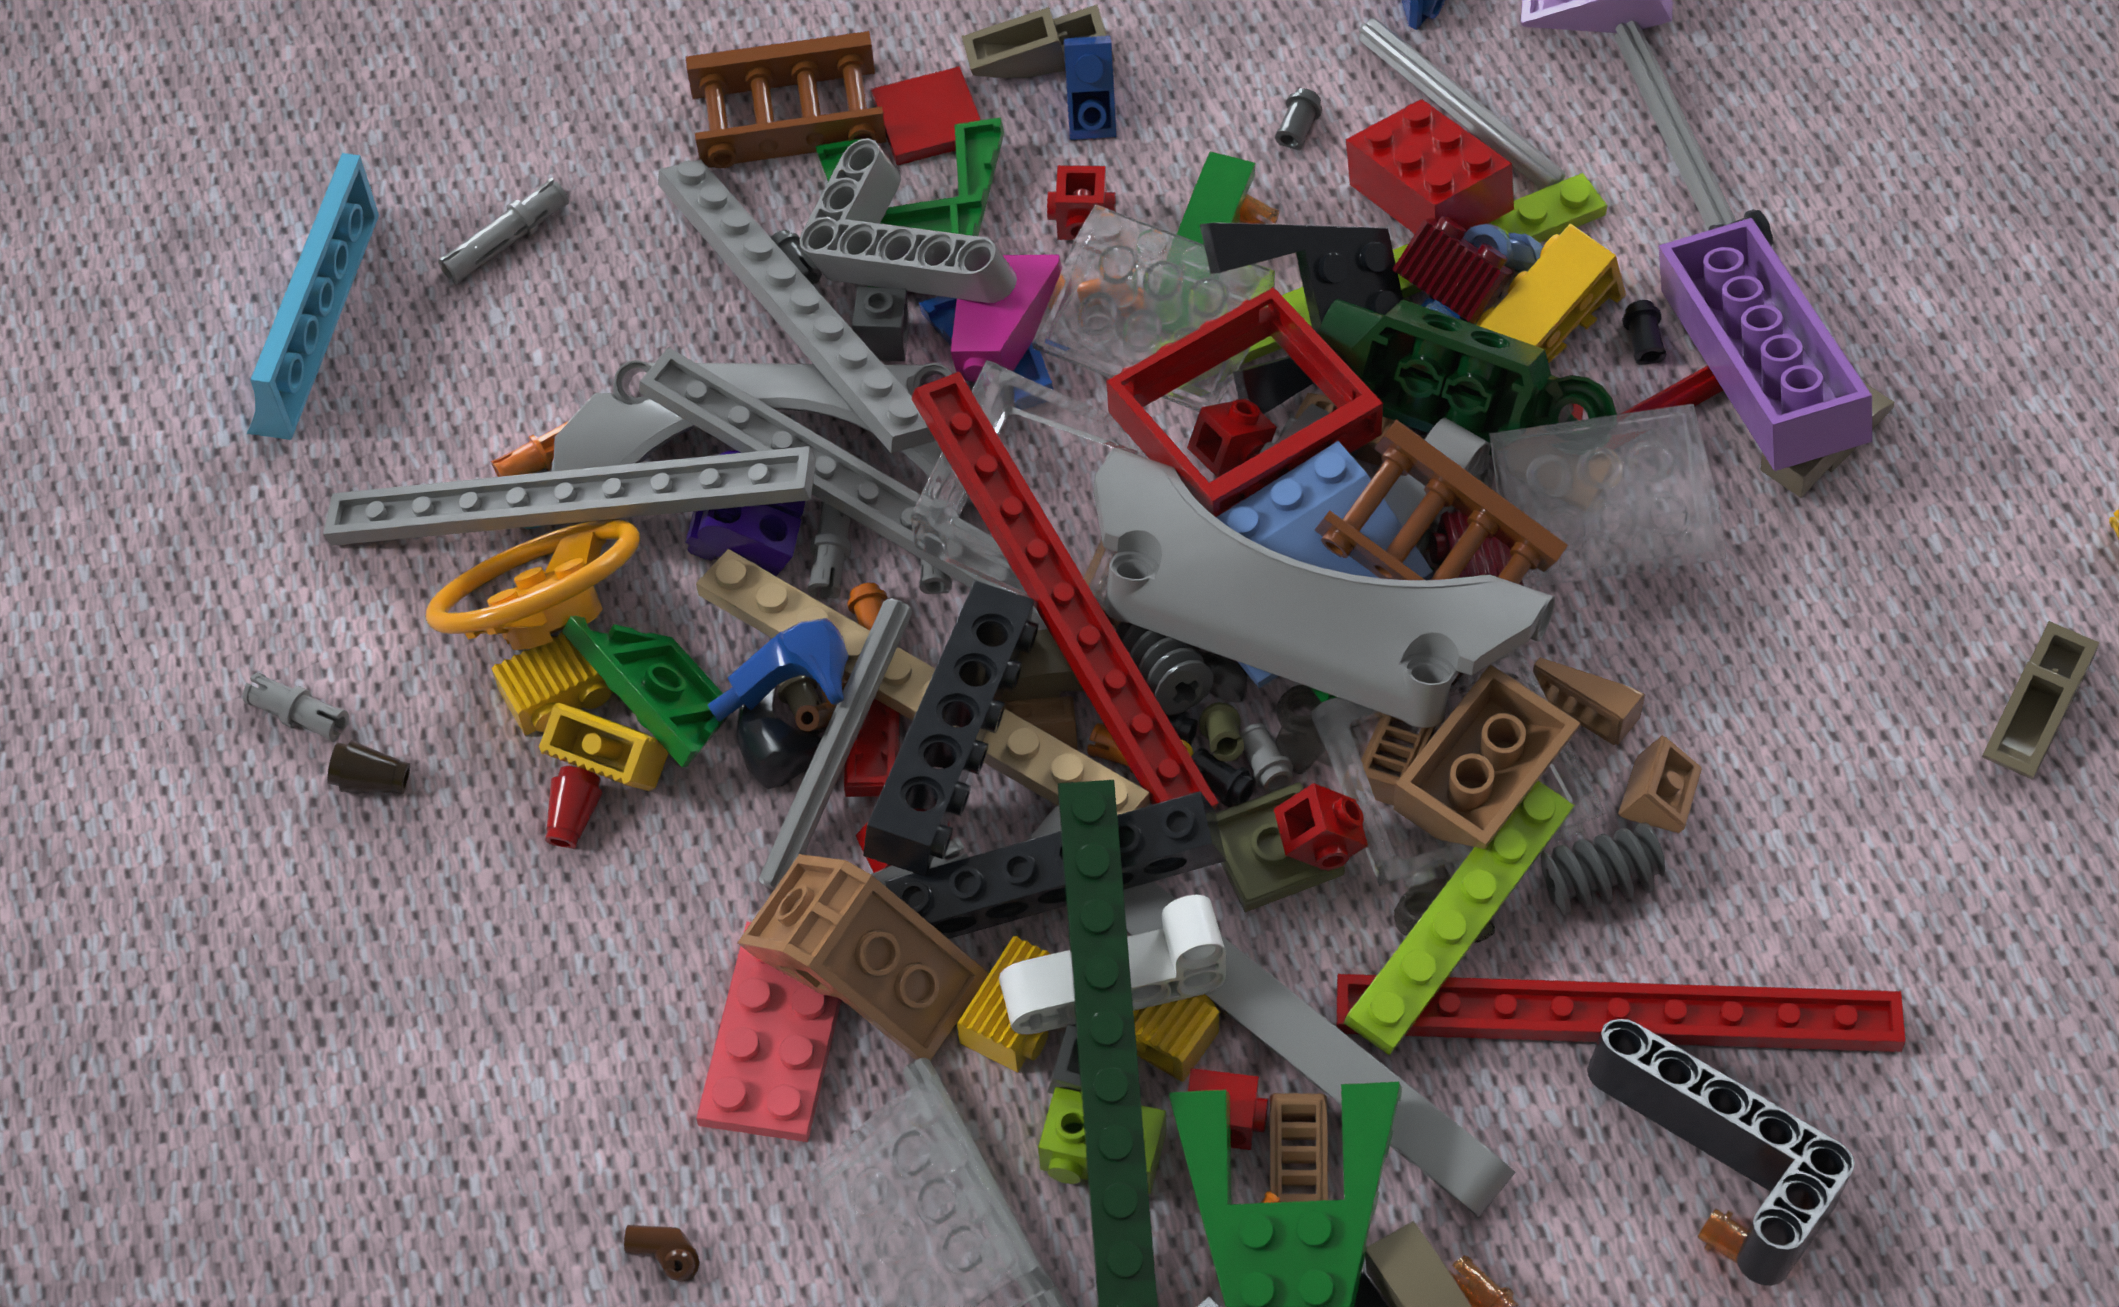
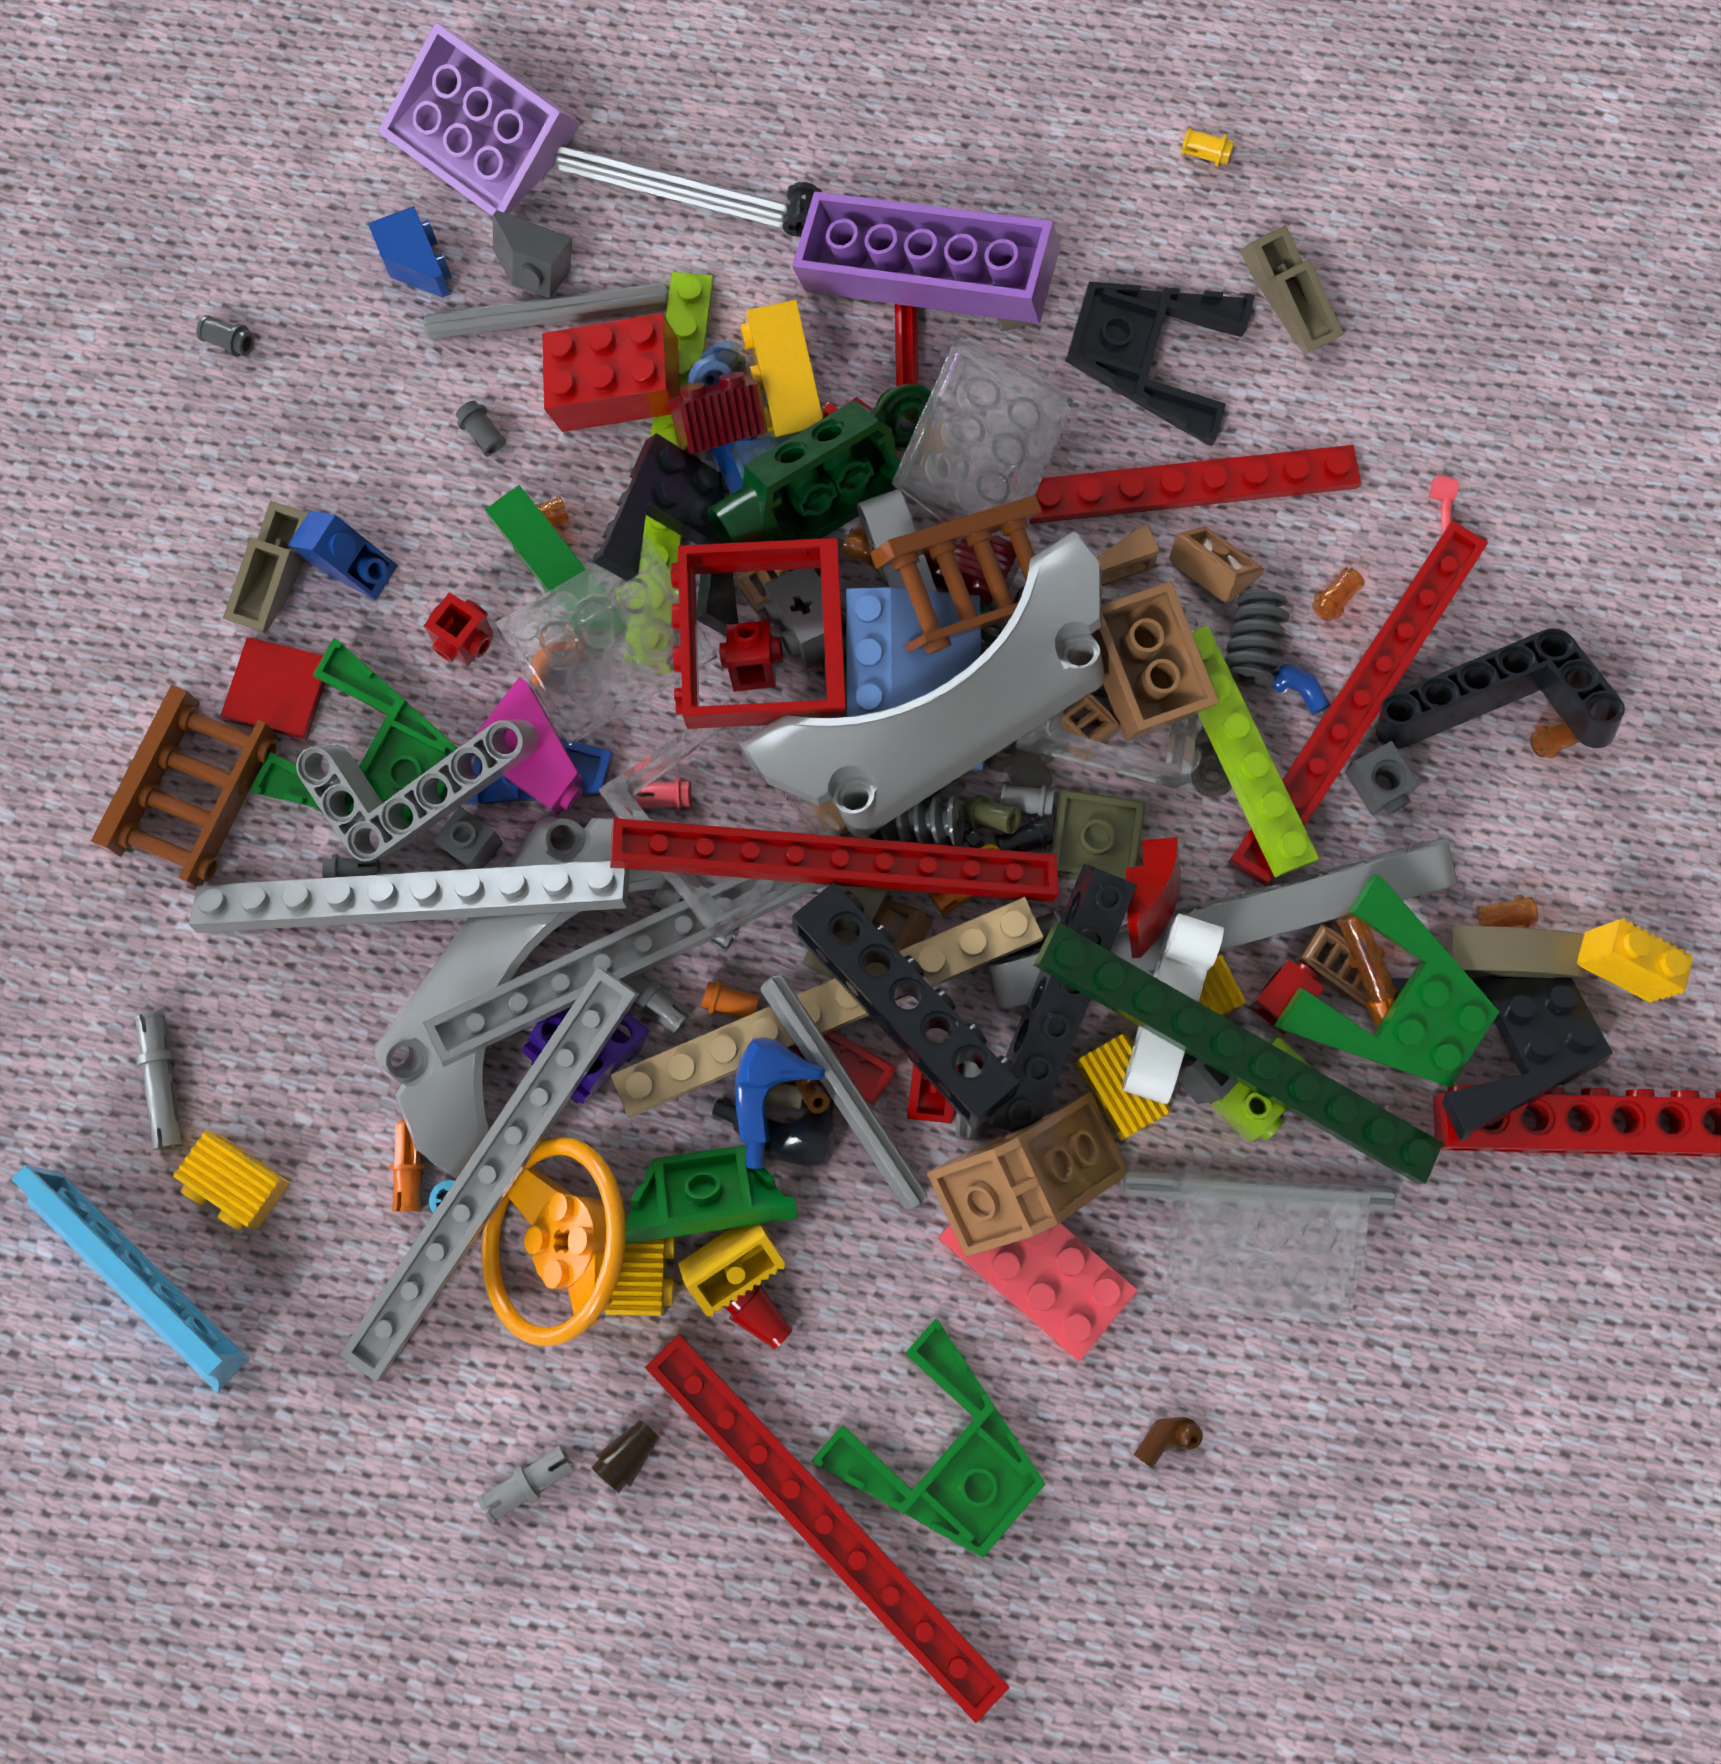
camera: 65 degrees left, 20 degrees up
(390, 986) = (828, 1528): none -> red plate
(444, 329) = (230, 1180): none -> yellow brick
(519, 1087) = (974, 1485): none -> green wing
(1049, 461) = (667, 795): none -> coral pin
(1244, 903) = (1155, 893): none -> red slope
(1315, 1157) = (1378, 983): none -> clear orange pin
(1321, 827) = (1127, 799): red brick -> none
(1502, 59) = (531, 254): none -> dark grey slope
(1540, 1057) = (1388, 763): none -> dark grey brick
(1596, 947) = (1305, 683): none -> blue arm
(1642, 321) = (838, 325): black pin -> none
(1724, 929) = (1330, 602): none -> clear orange pin
(1742, 733) = (1197, 483): none -> red plate
(1851, 570) = (1119, 338): none -> black wing
(1937, 977) = (1445, 490): none -> coral hand

